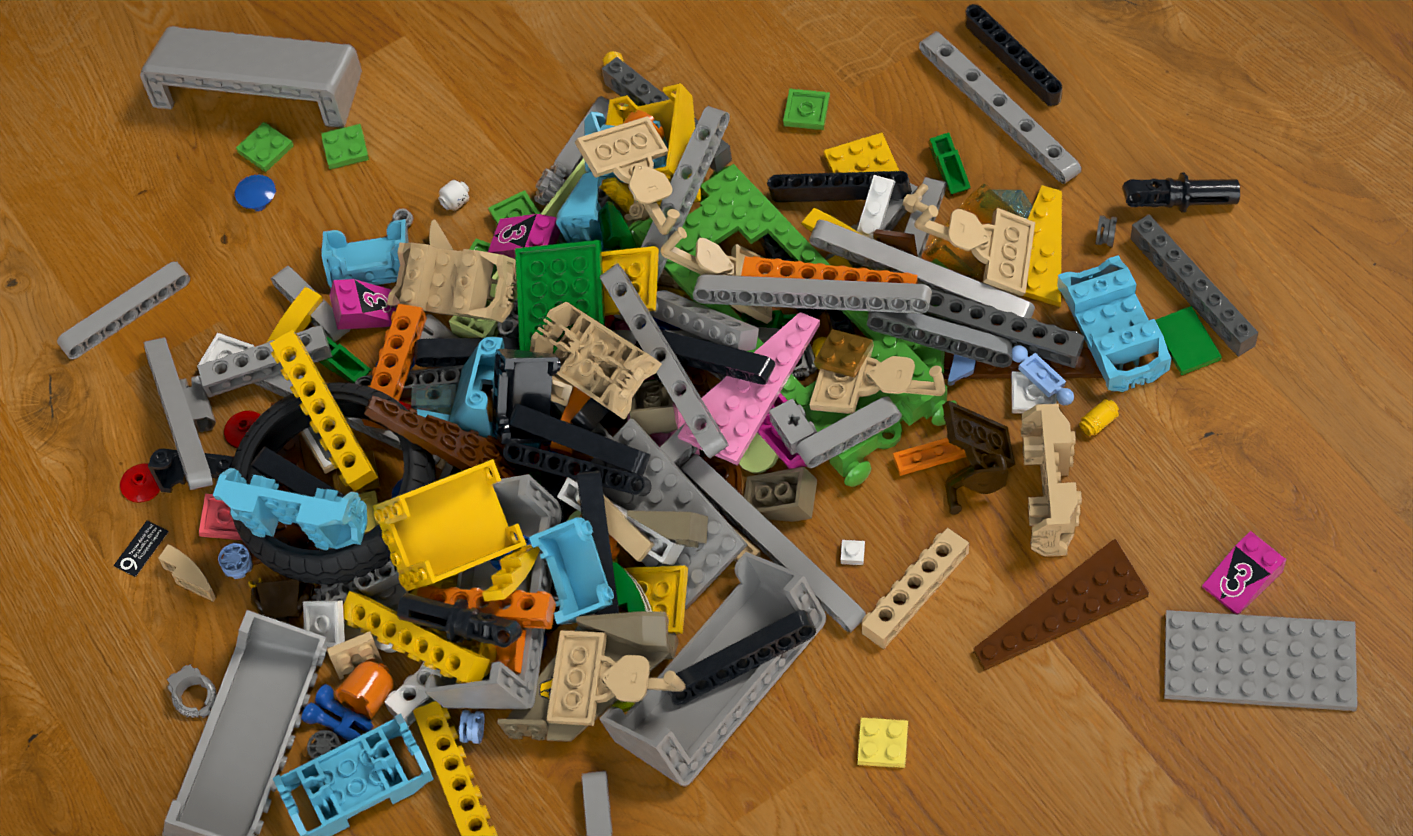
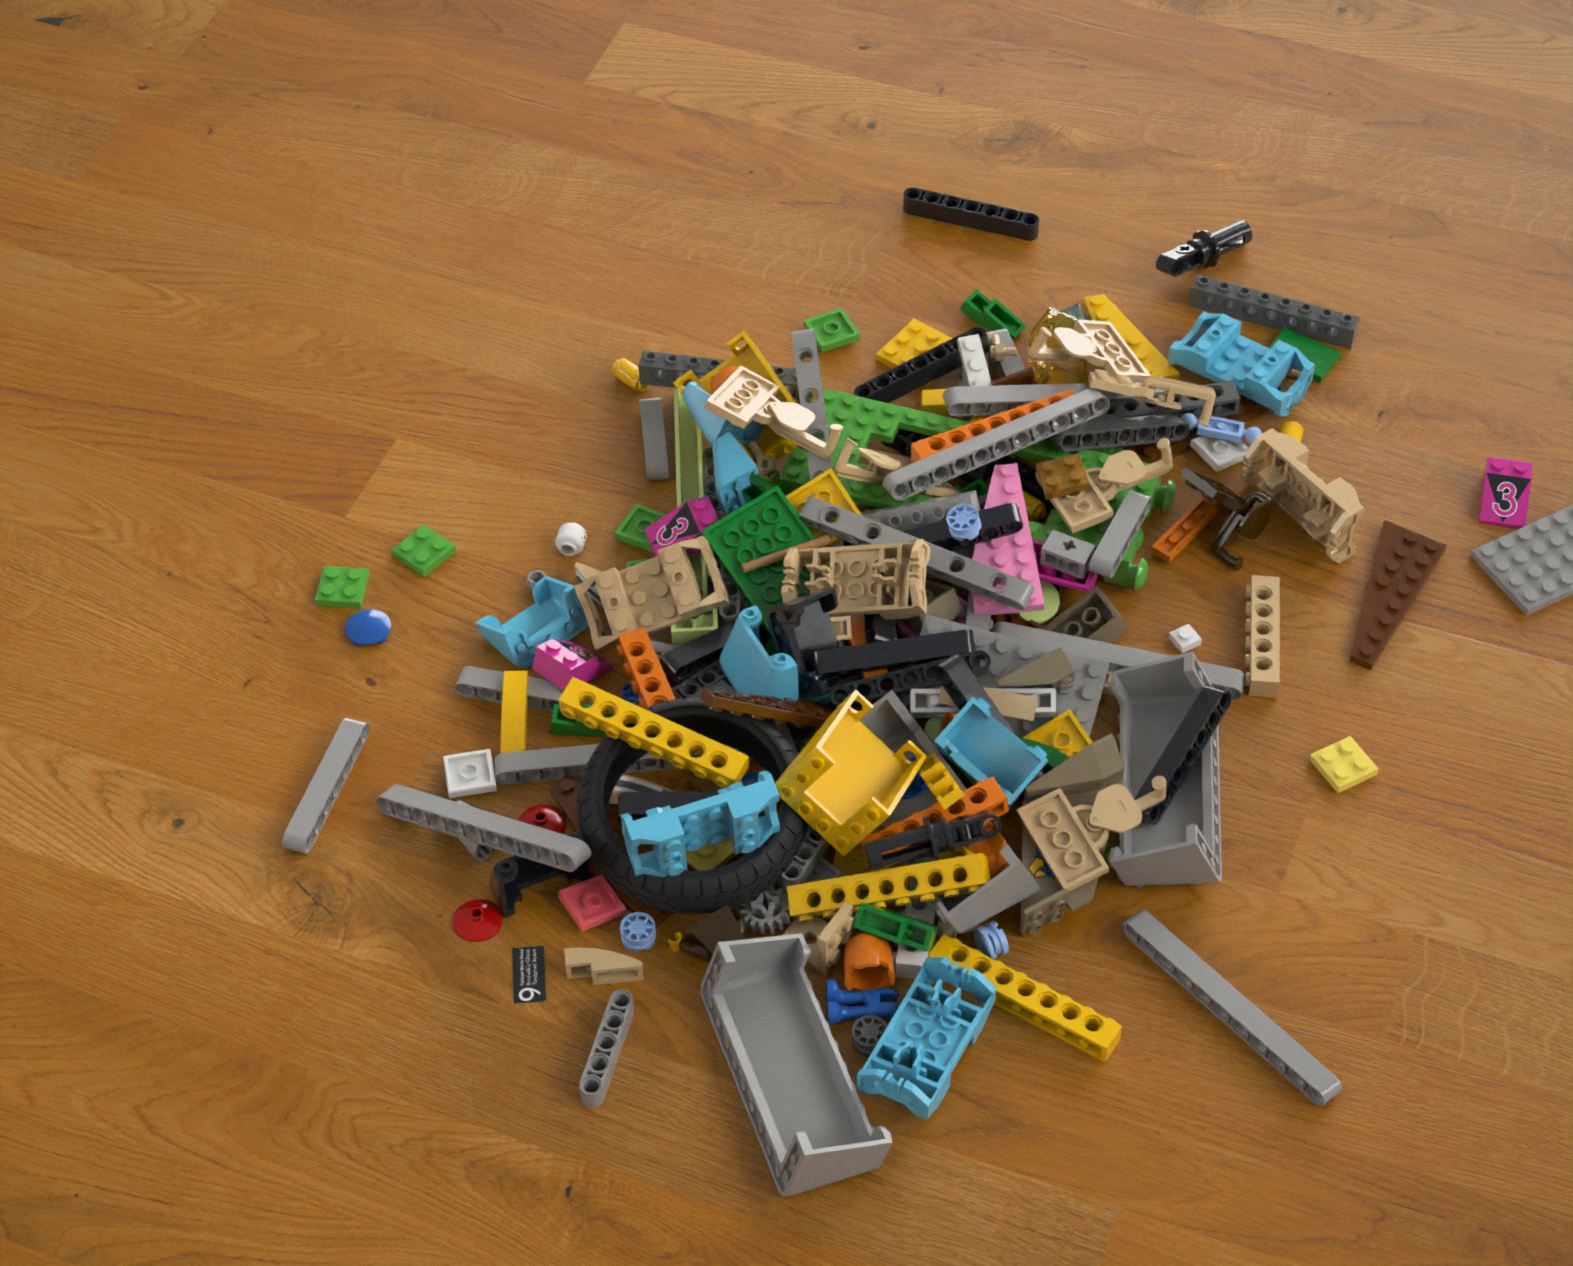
camera: 40 degrees left, 10 degrees down
(134, 652) = (606, 1058): none -> light grey beam
(181, 681) = (687, 1046): light grey piece -> none
(229, 373) = (518, 753): light grey brick -> none
(254, 66) = (279, 518): light grey windscreen -> none
(325, 619) = (779, 920): white plate -> none
(397, 674) = (896, 927): none -> green slope
(550, 183) = (660, 484): light grey gear -> none
(585, 305) = (778, 556): none -> medium nougat bar
(716, 354) = (963, 523): none -> light blue wheel
(961, 368) = (1147, 452): medium blue tile -> none
(964, 288) = (1146, 390): none -> tan plate
(1000, 108) = (995, 256): light grey beam -> none
(1108, 231) = (1170, 304): dark grey wheel -> none

